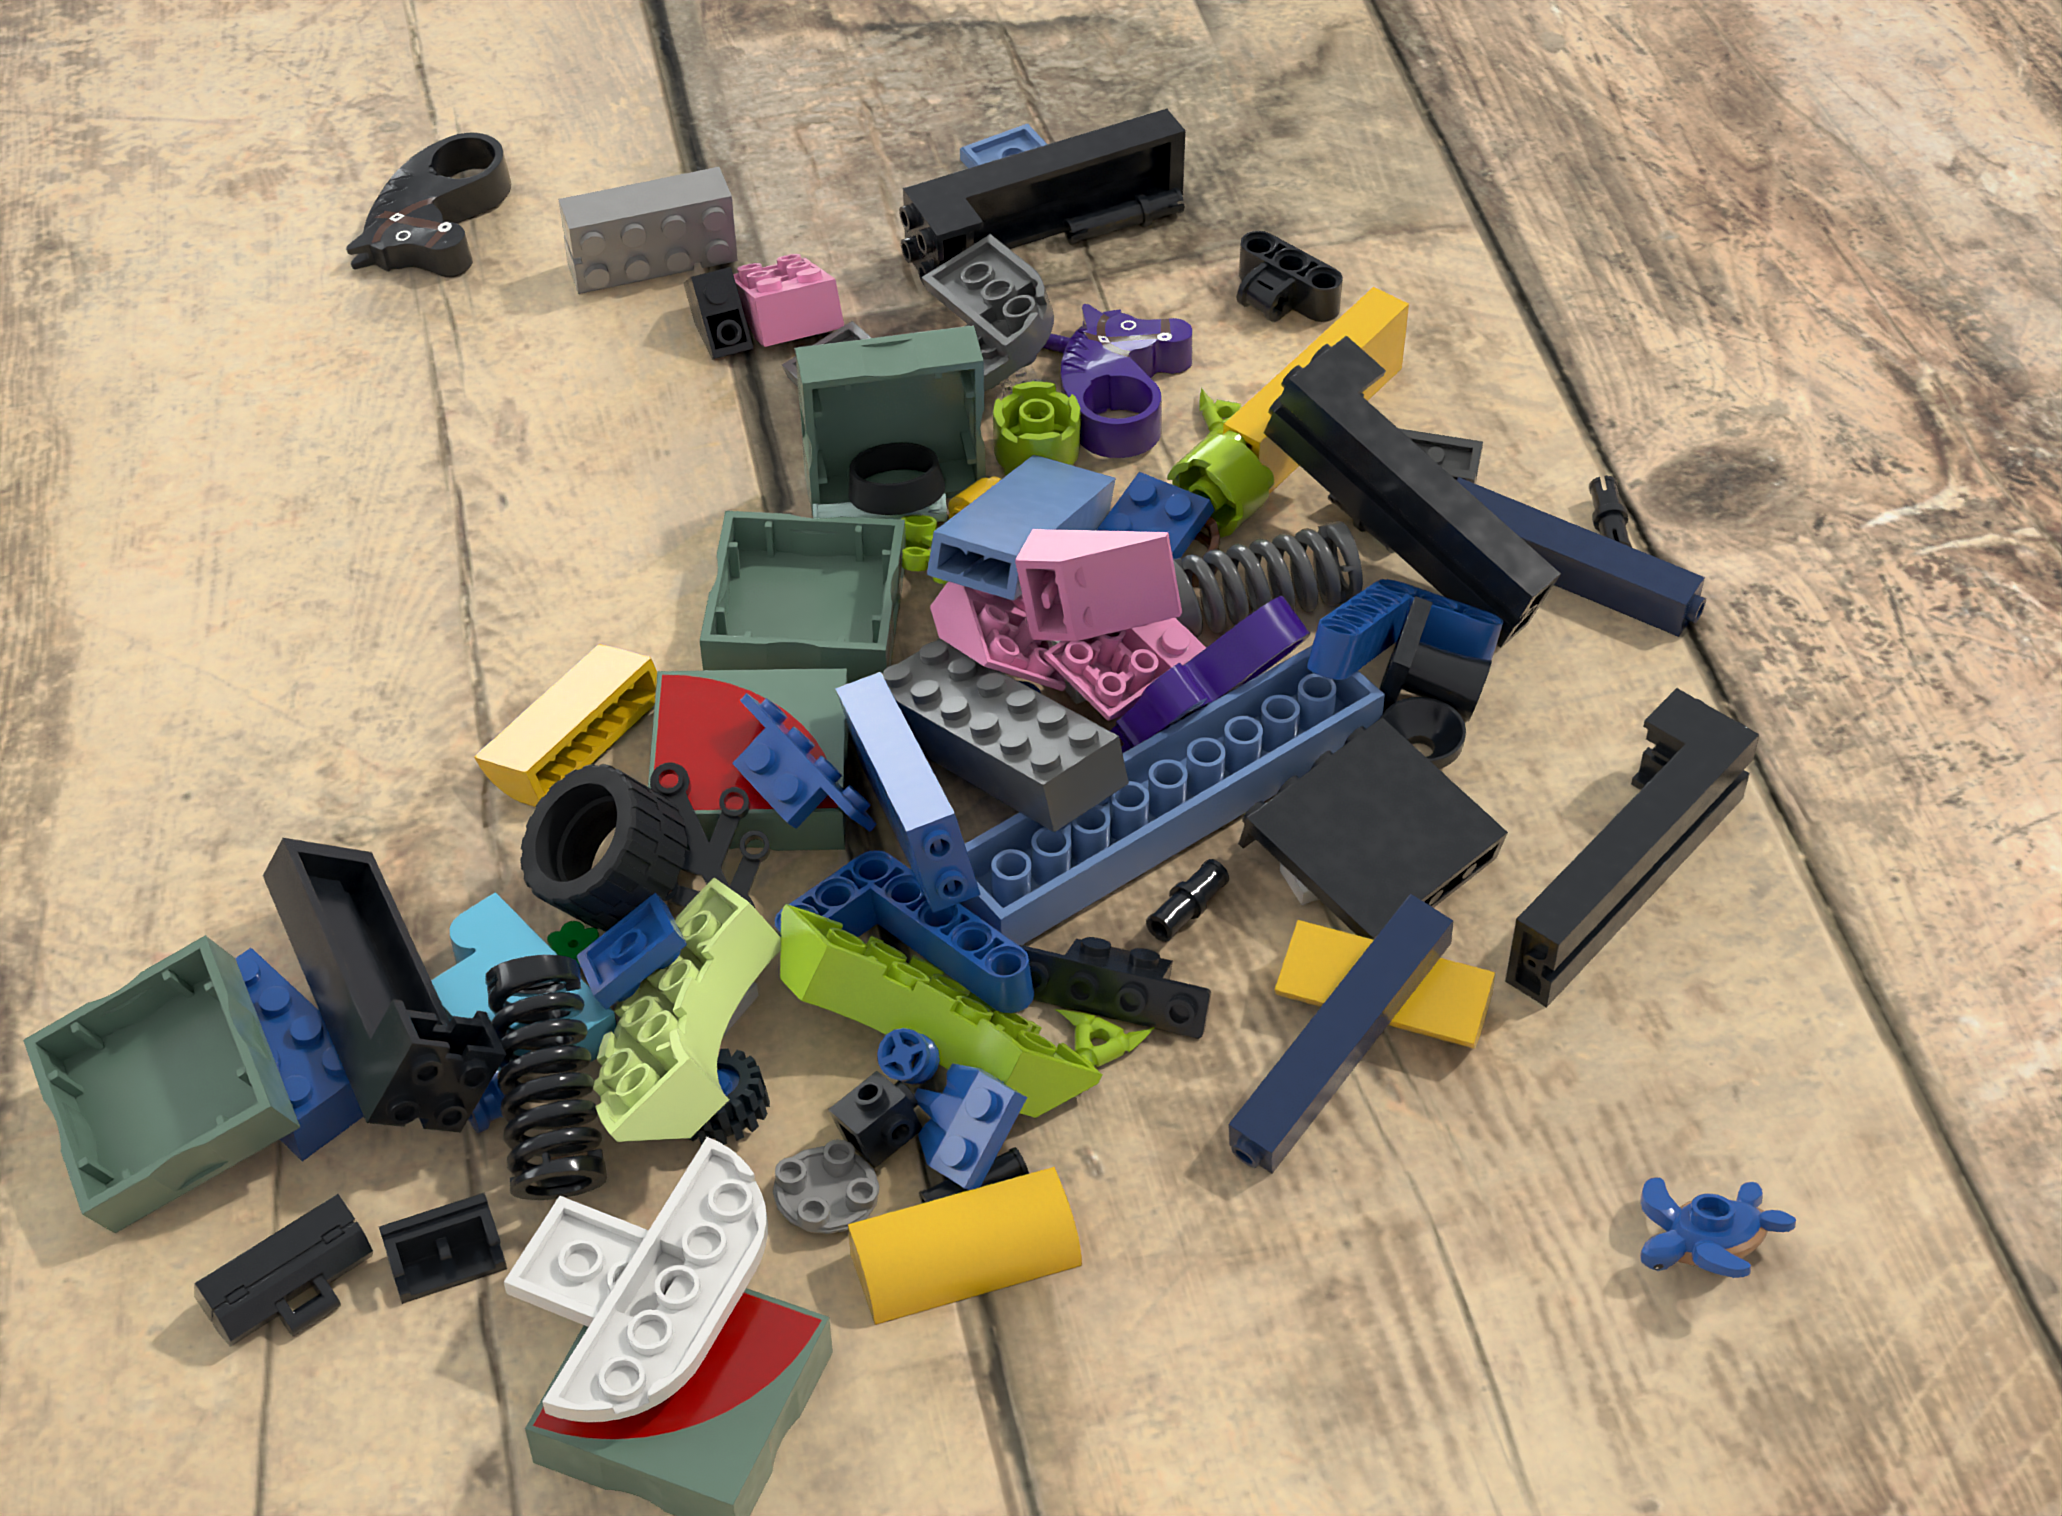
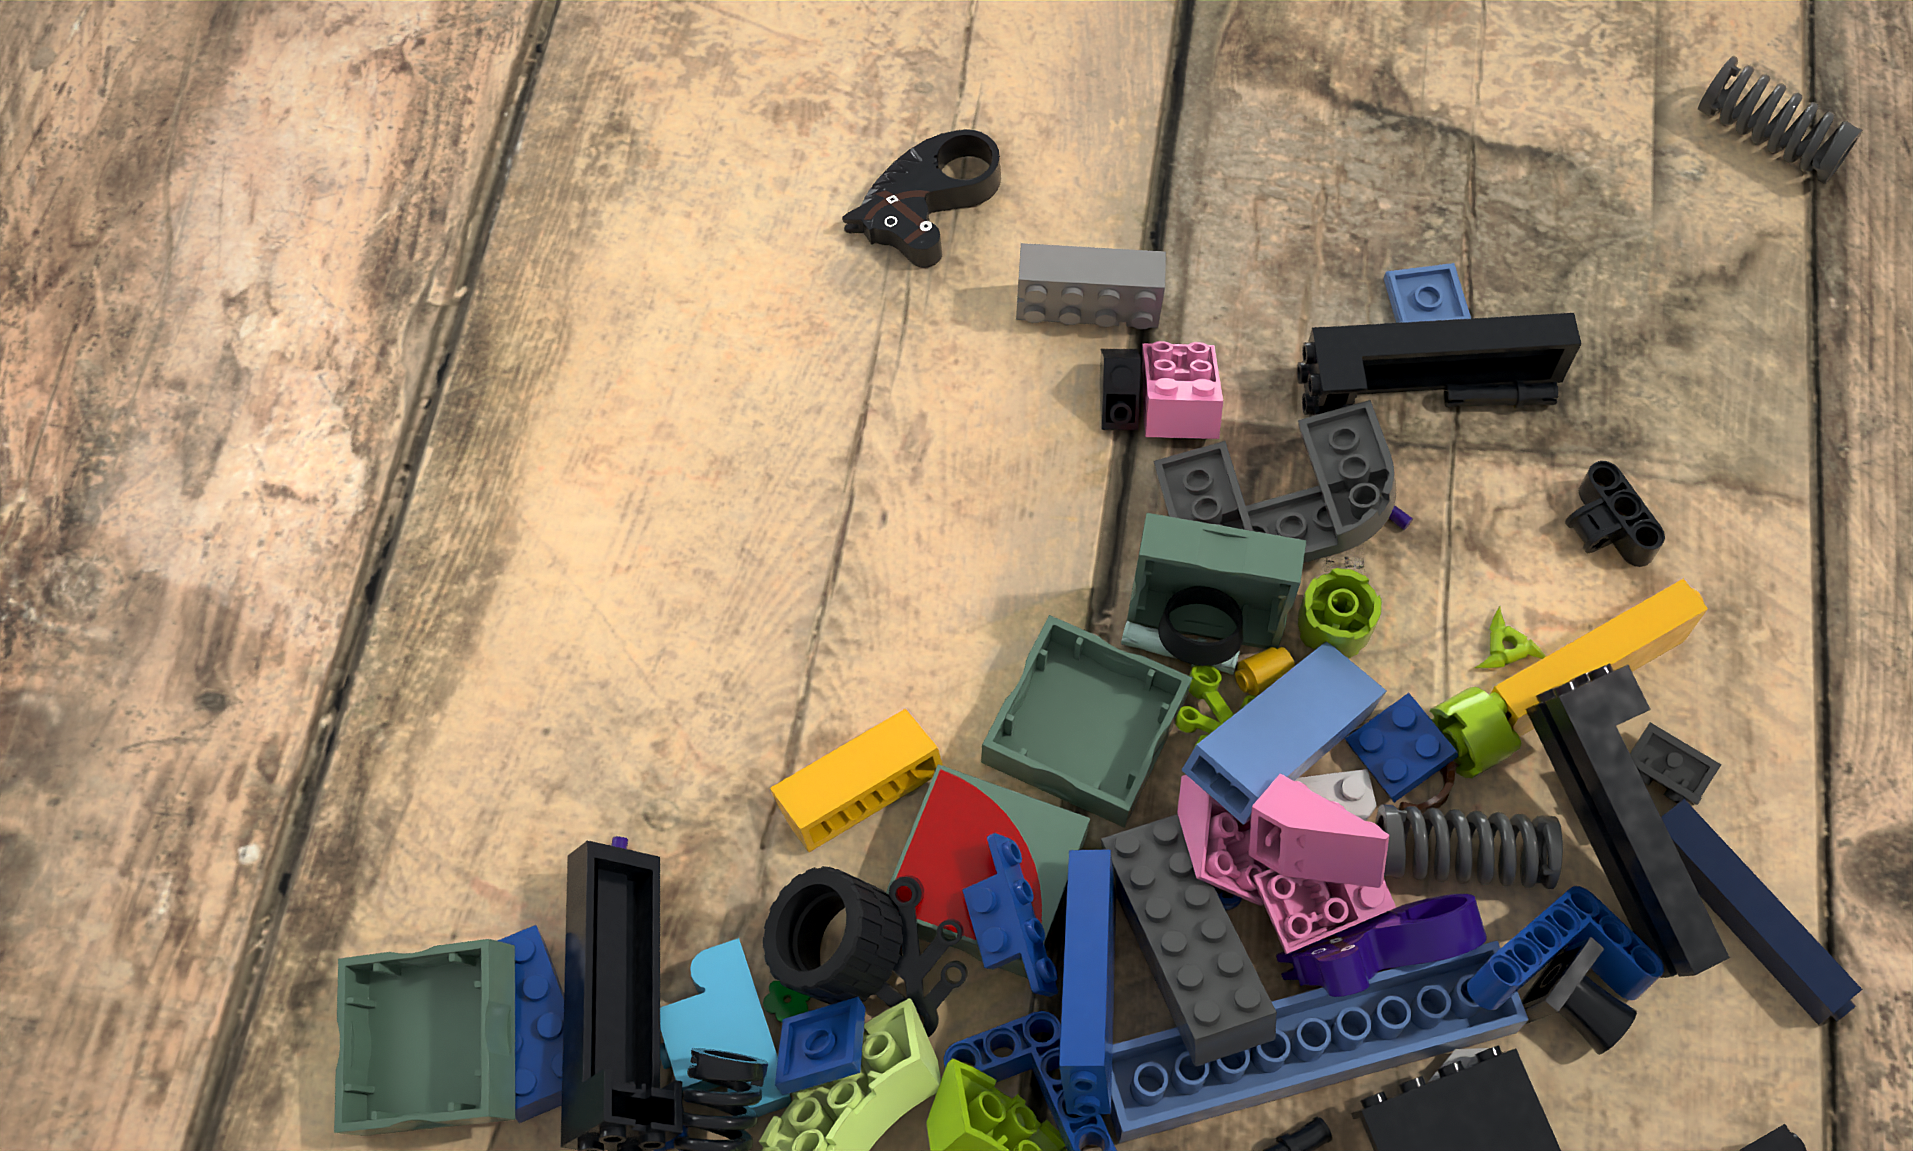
camera: 20 degrees right, 15 degrees up
(1112, 367) = (1418, 564): dark purple animal -> none
(1429, 723) = (1563, 1045): black piece -> none
(1609, 514) = (1806, 879): black pin -> none

